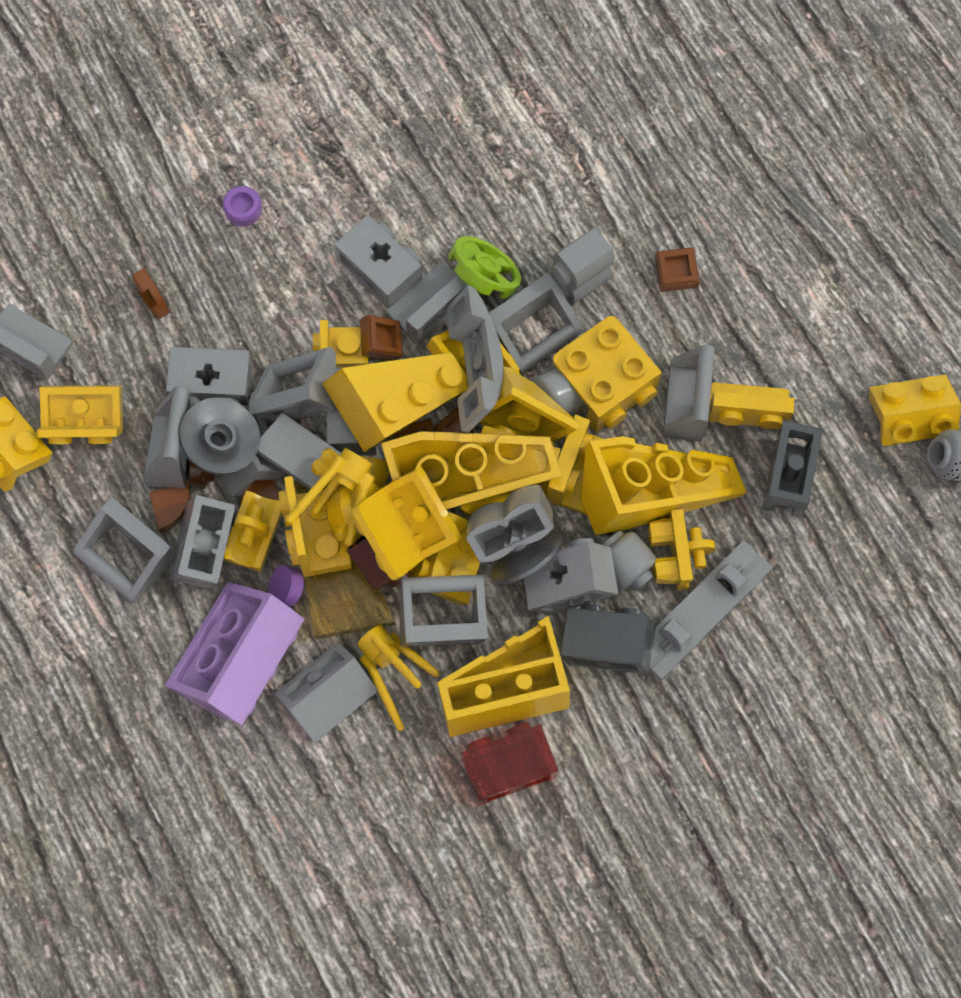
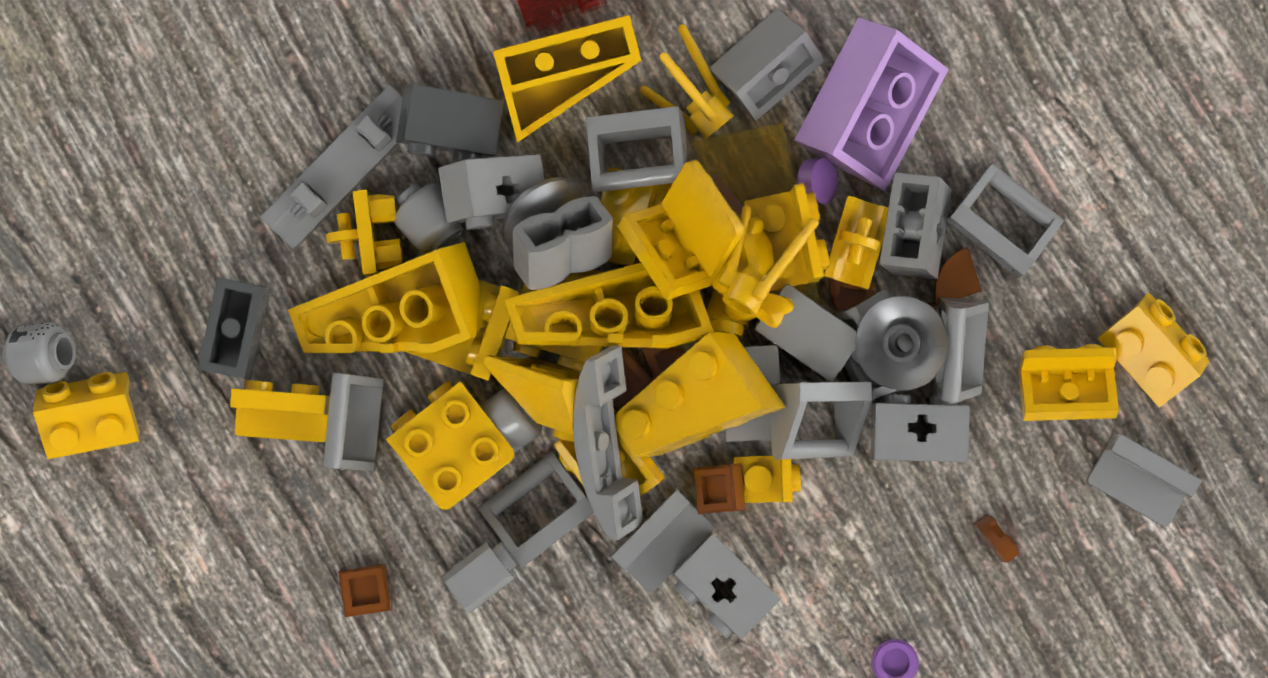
camera: 175 degrees right, 15 degrees up
(481, 266) = (598, 577): lime piece -> none

